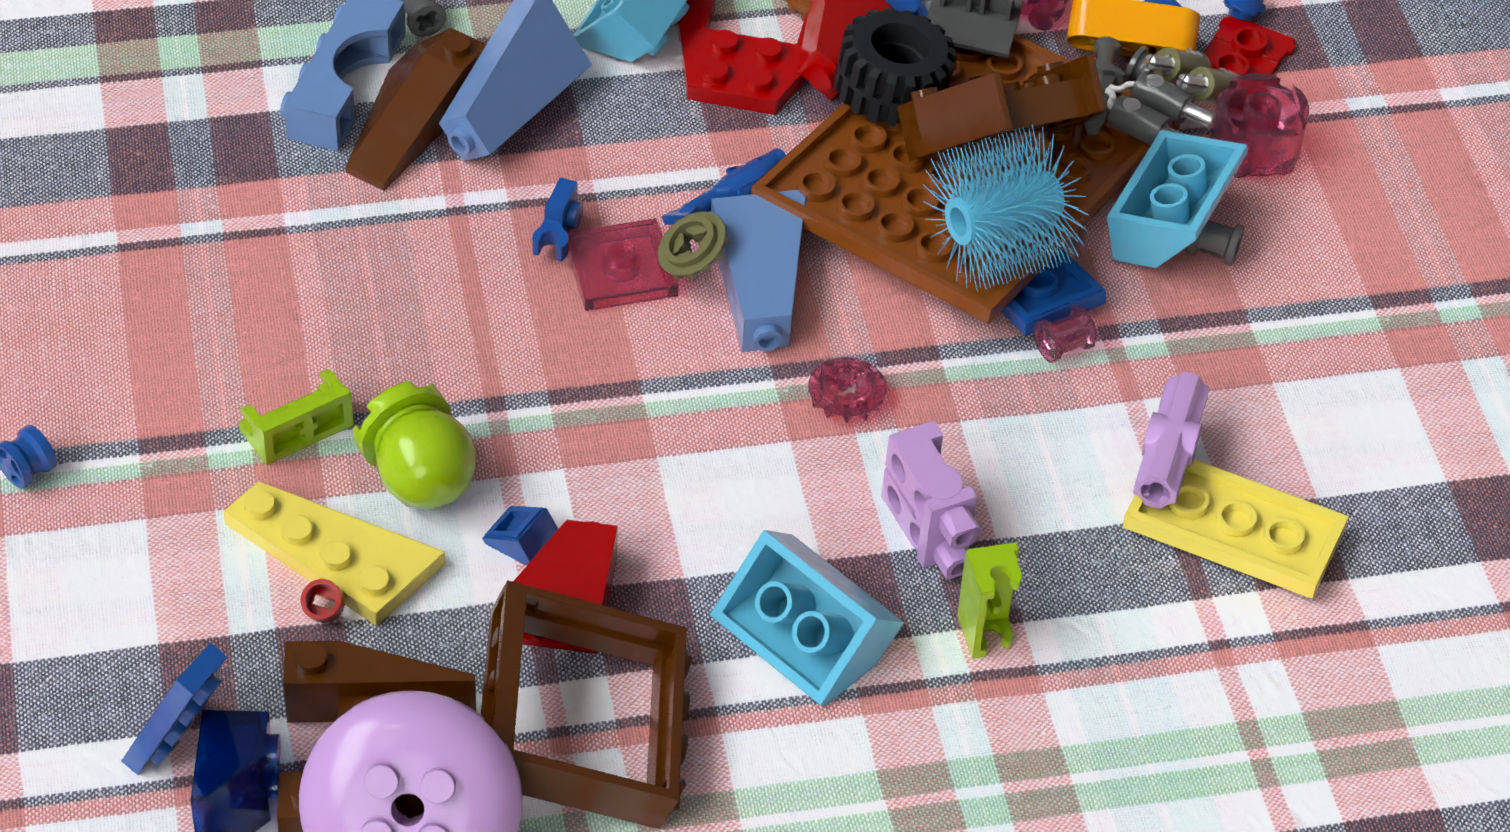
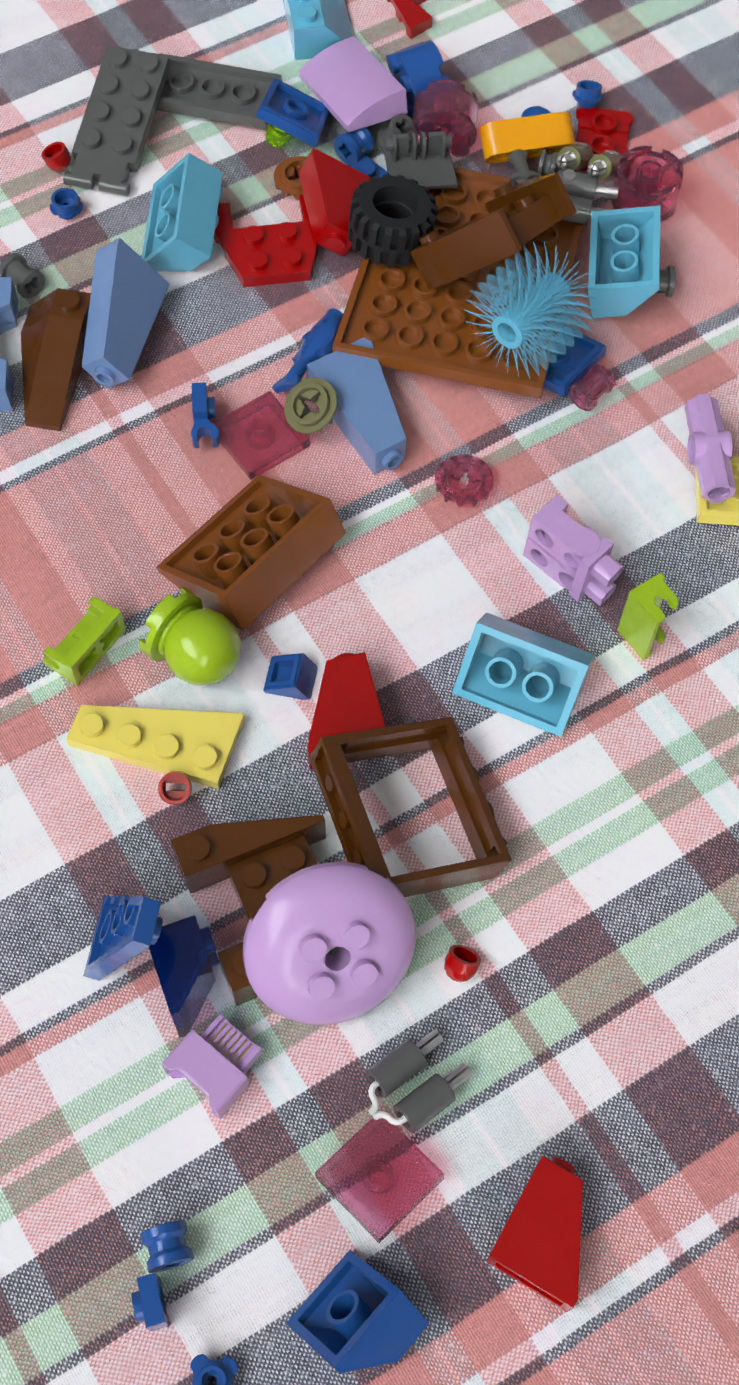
camera: 20 degrees left, 15 degrees up
(549, 383) = (254, 548): none -> dark orange slope

